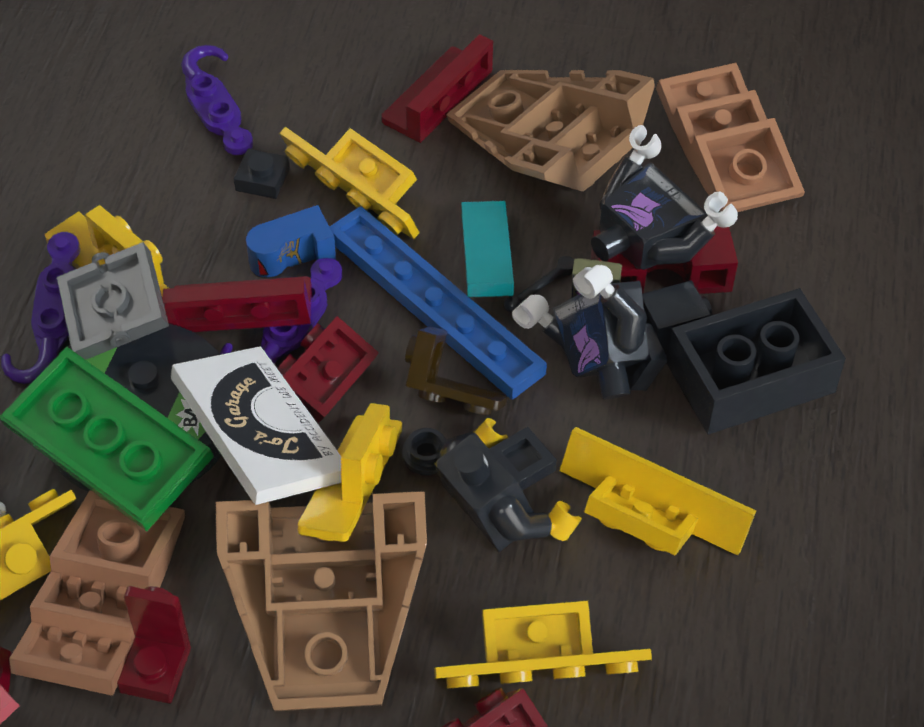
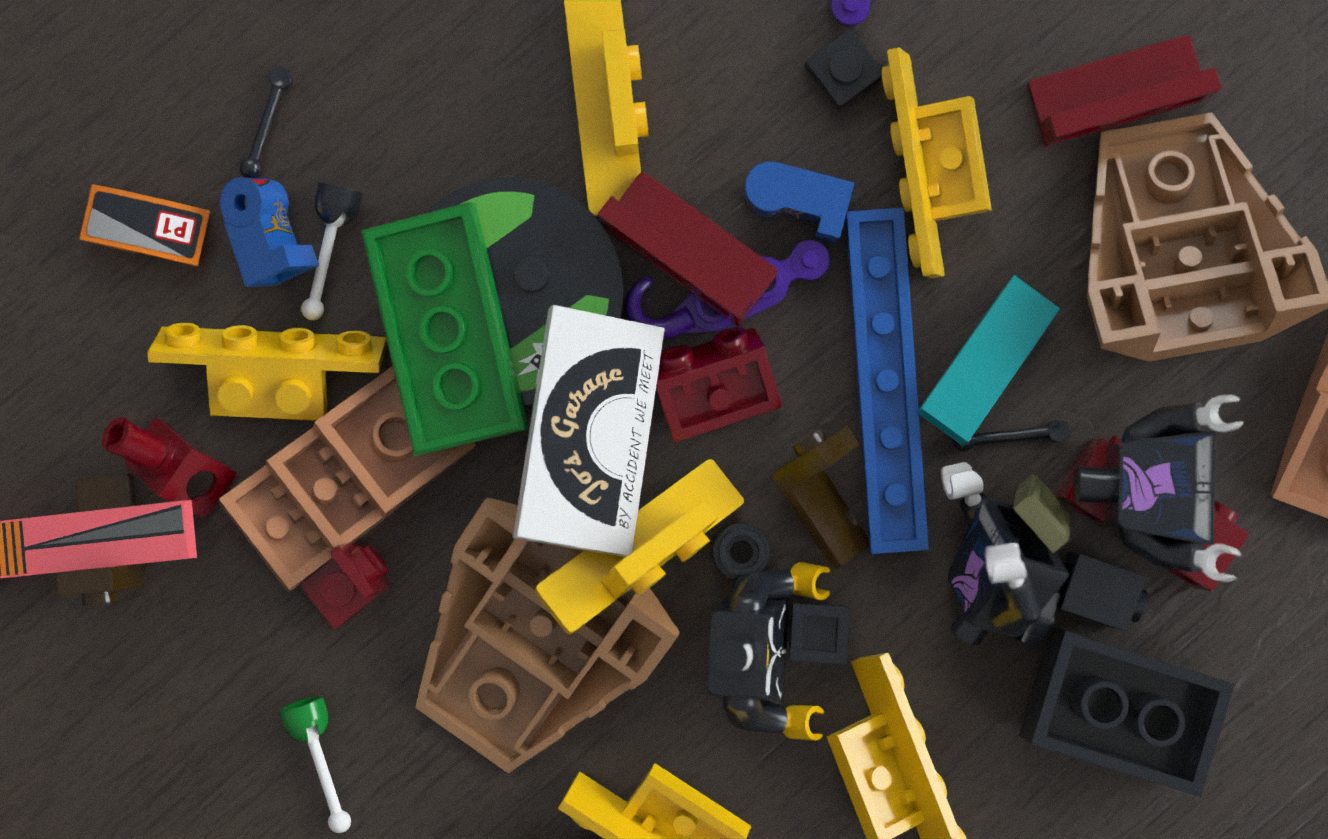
camera: 40 degrees right, 35 degrees up
(48, 313) = (511, 102): dark purple piece -> none
(112, 301) = (552, 174): plate -> none

